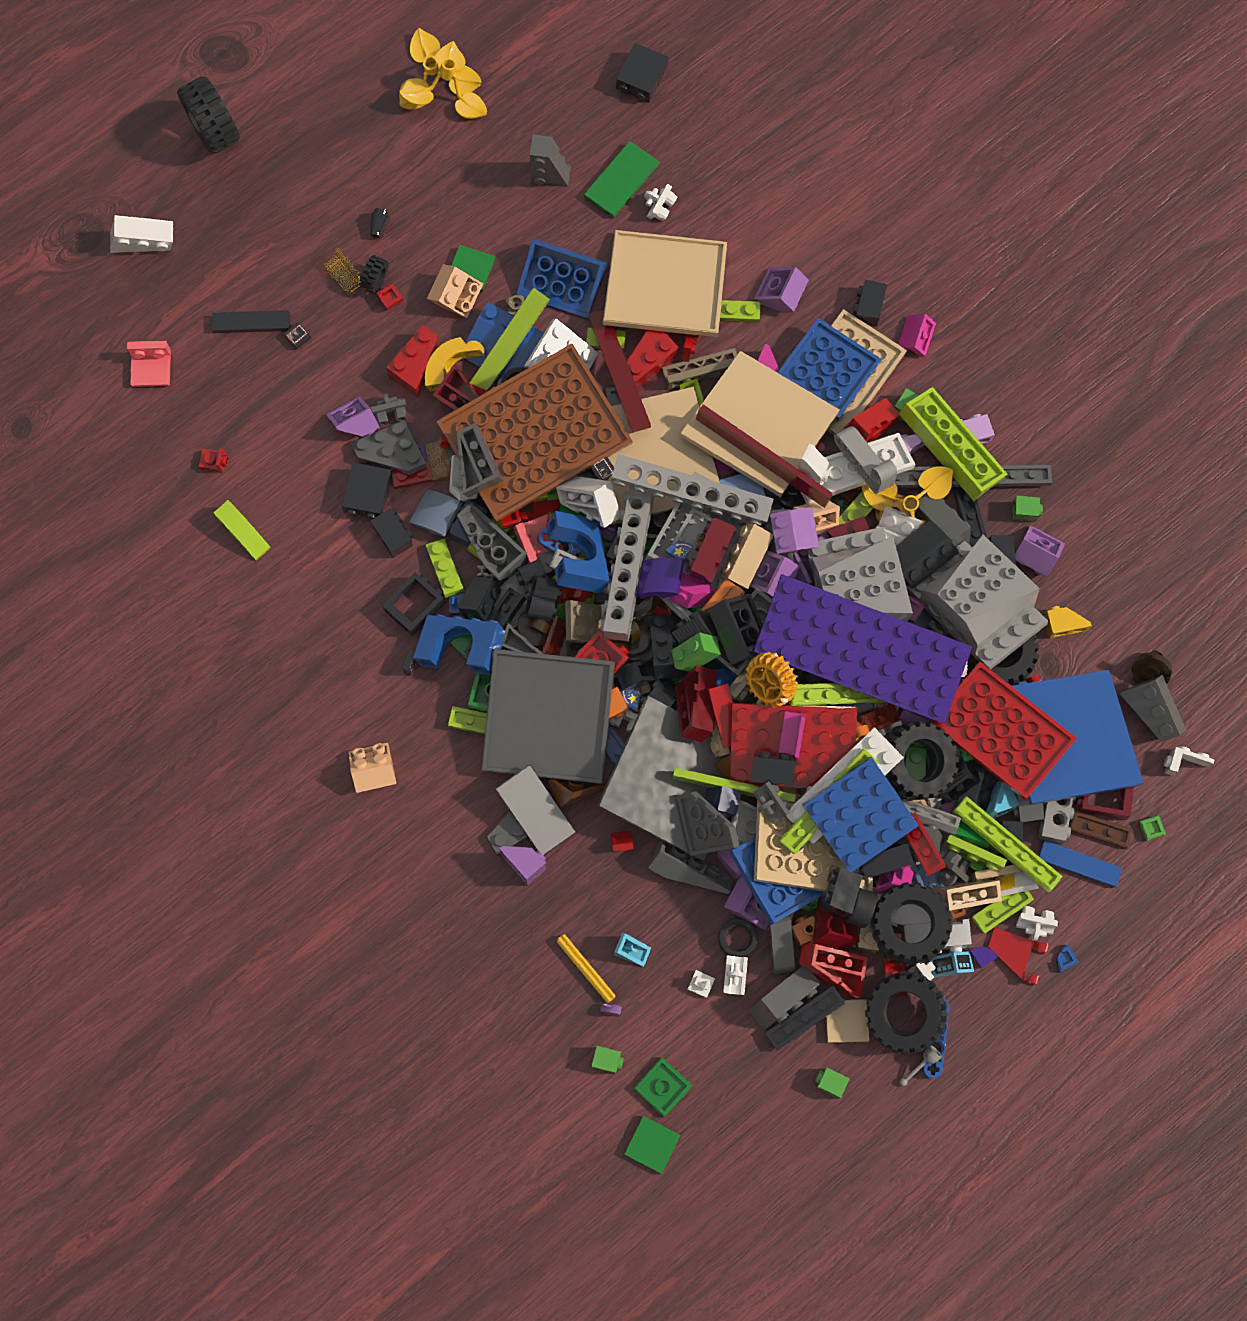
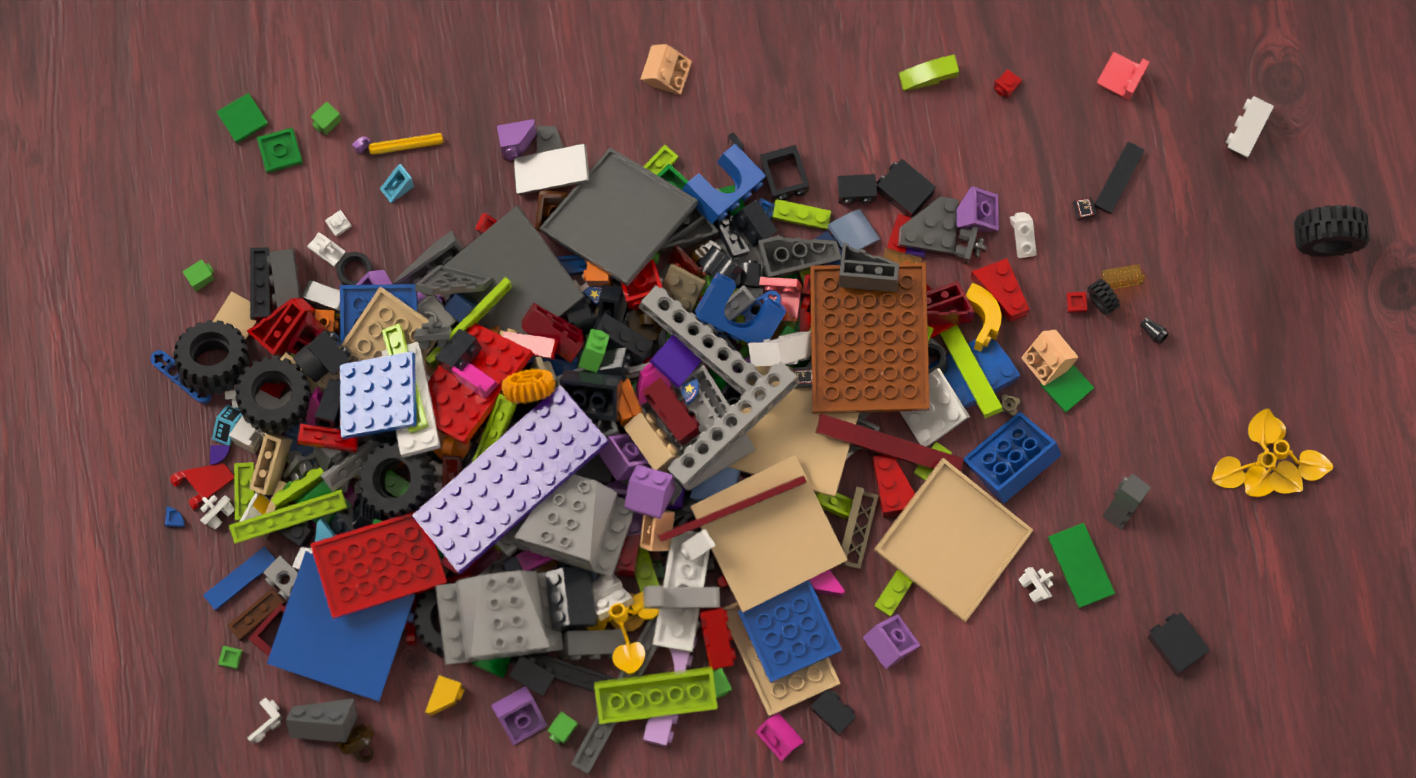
camera: 125 degrees right, 0 degrees up
(349, 369) = (1024, 234): none -> white bracket
(689, 346) = (880, 524): red plate -> none
(931, 1055) = (167, 359): light grey hinge -> none

